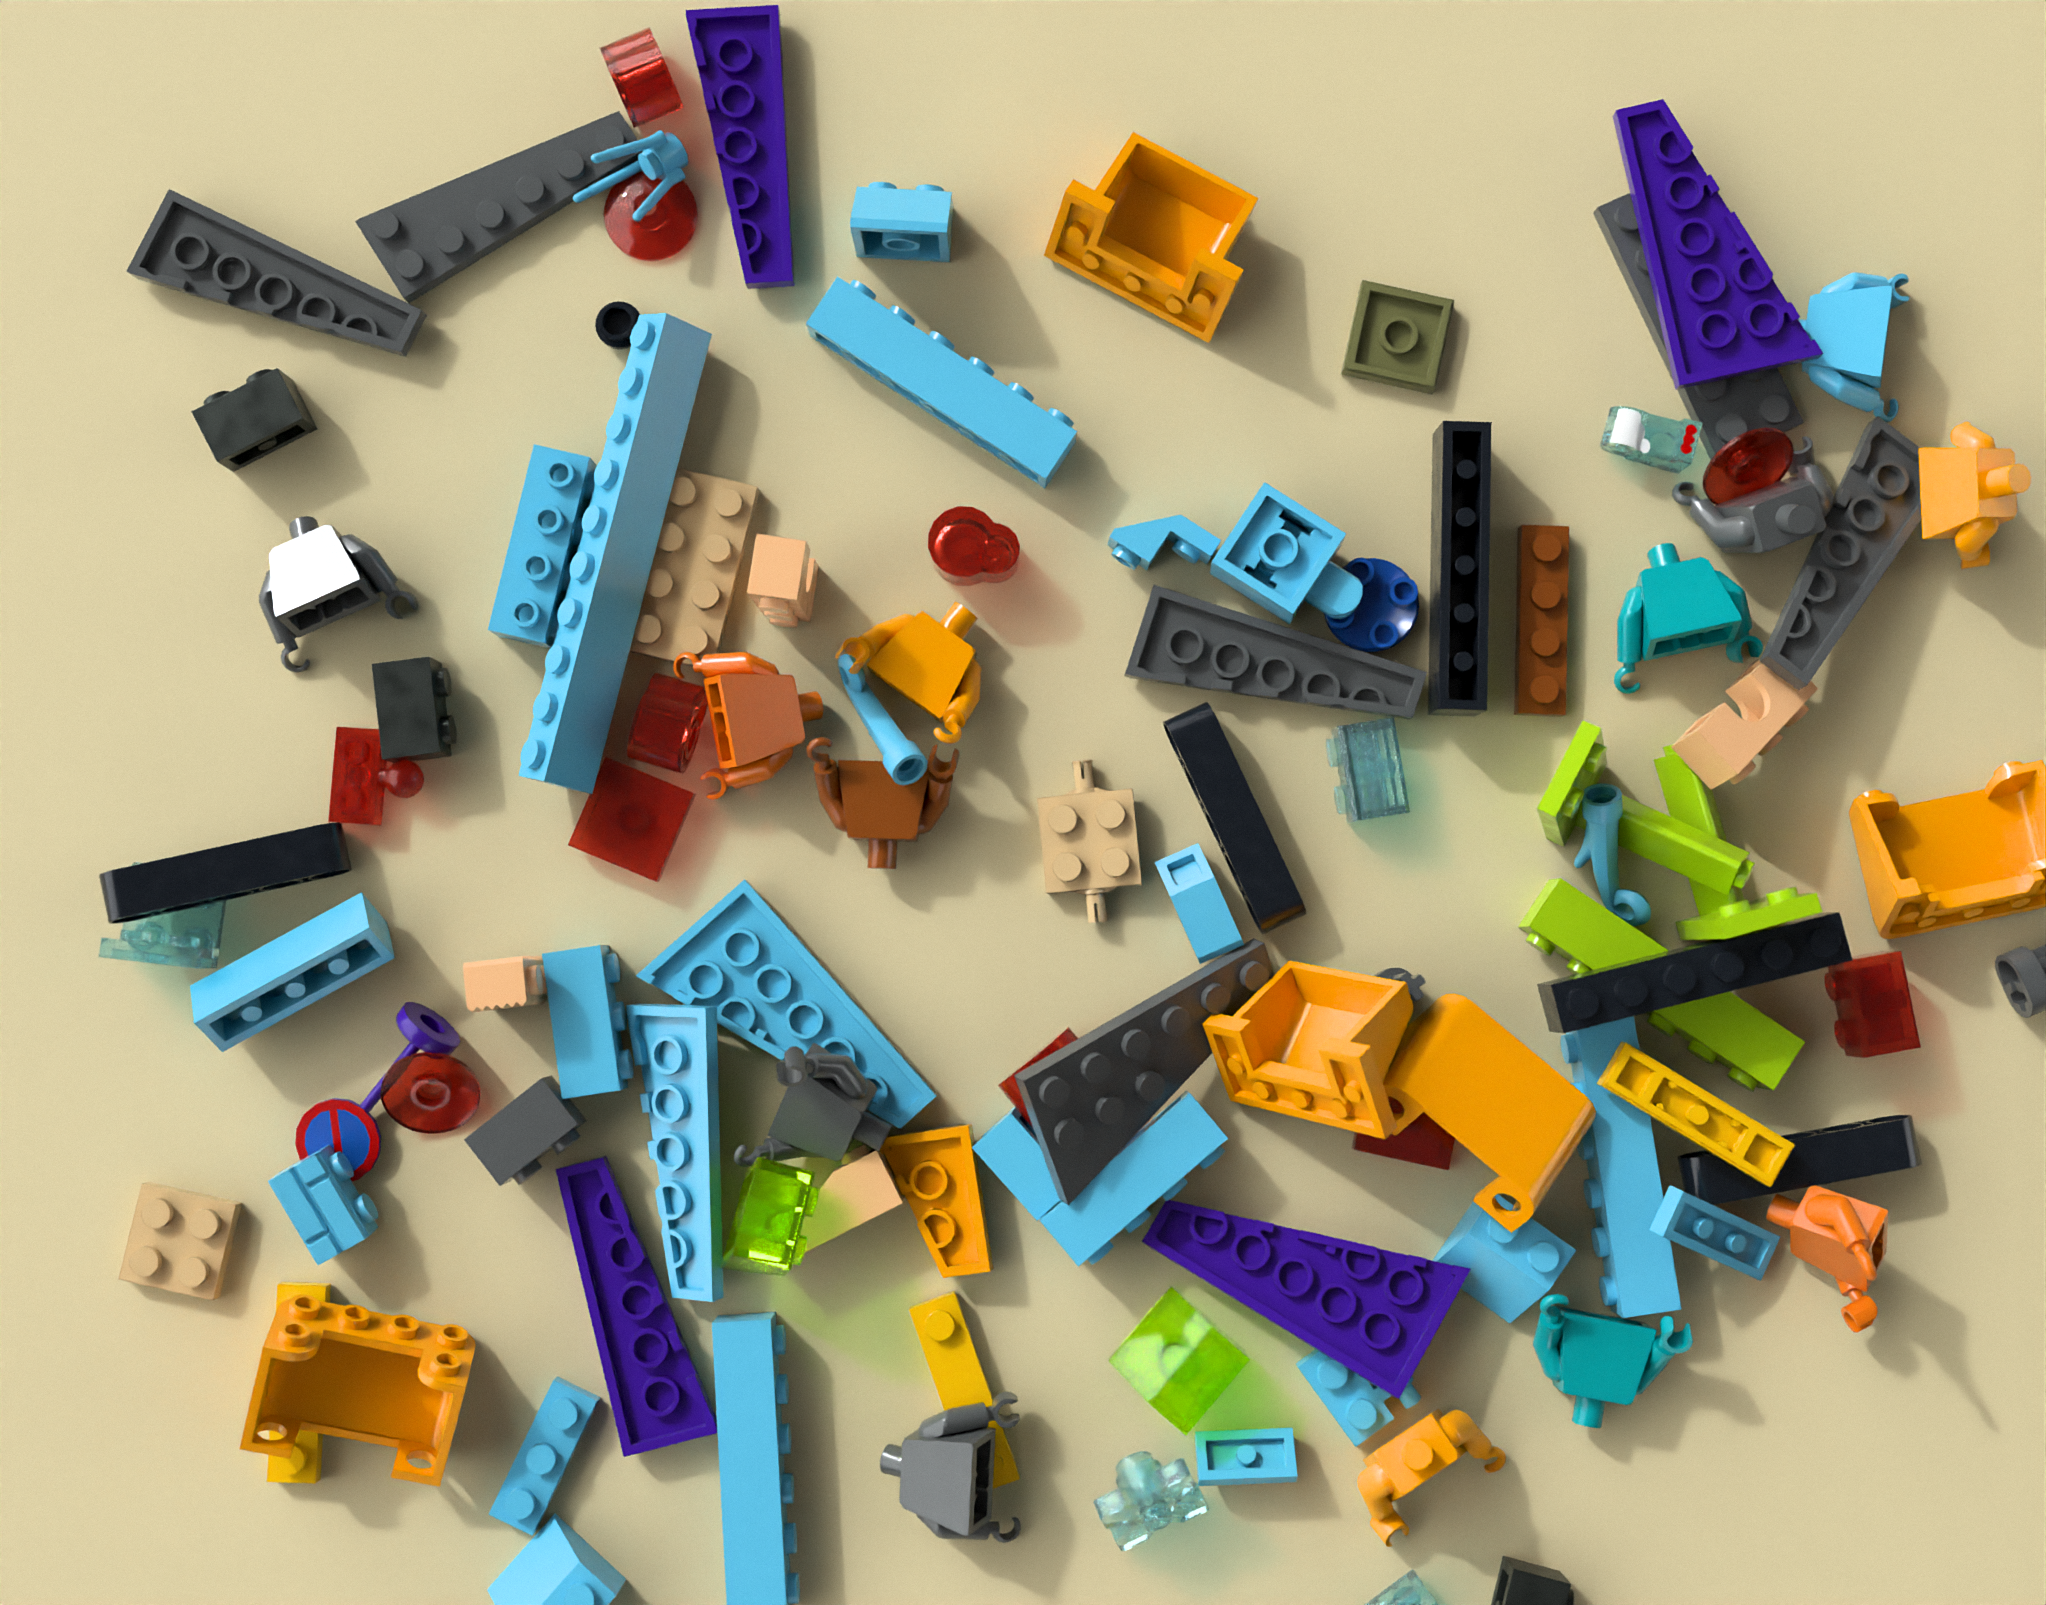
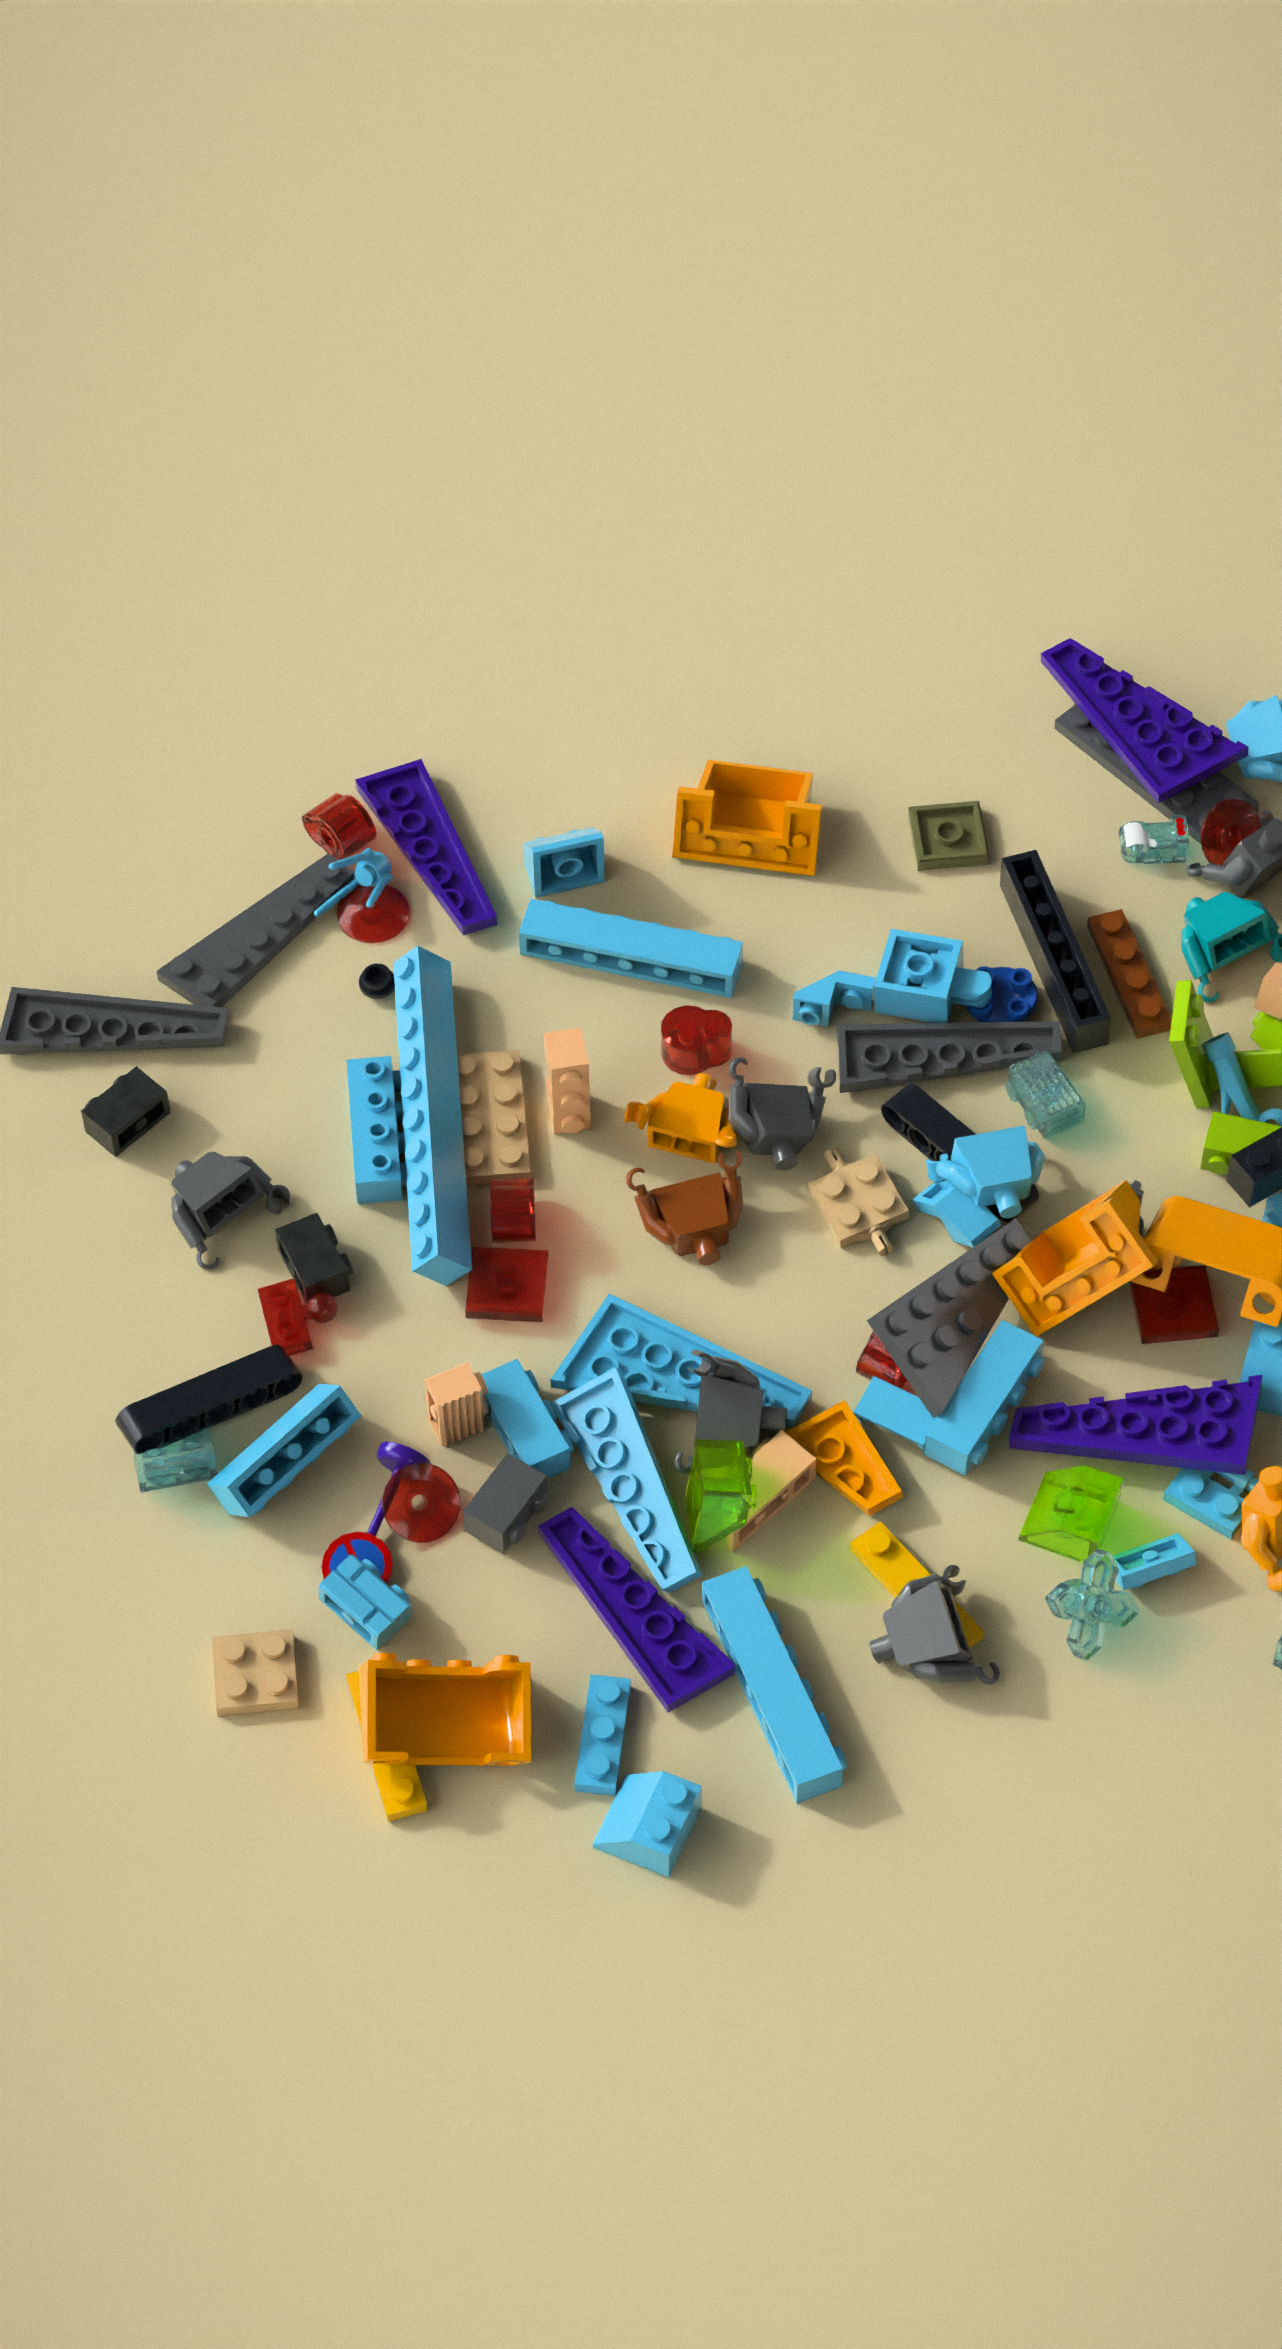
camera: 15 degrees left, 30 degrees down
(752, 716) = (575, 1184): orange torso -> none
(900, 756) = (697, 1165): medium azure plant -> none
(1030, 701) = (775, 1116): none -> dark grey torso
(1260, 880) = (992, 1168): none -> medium azure torso

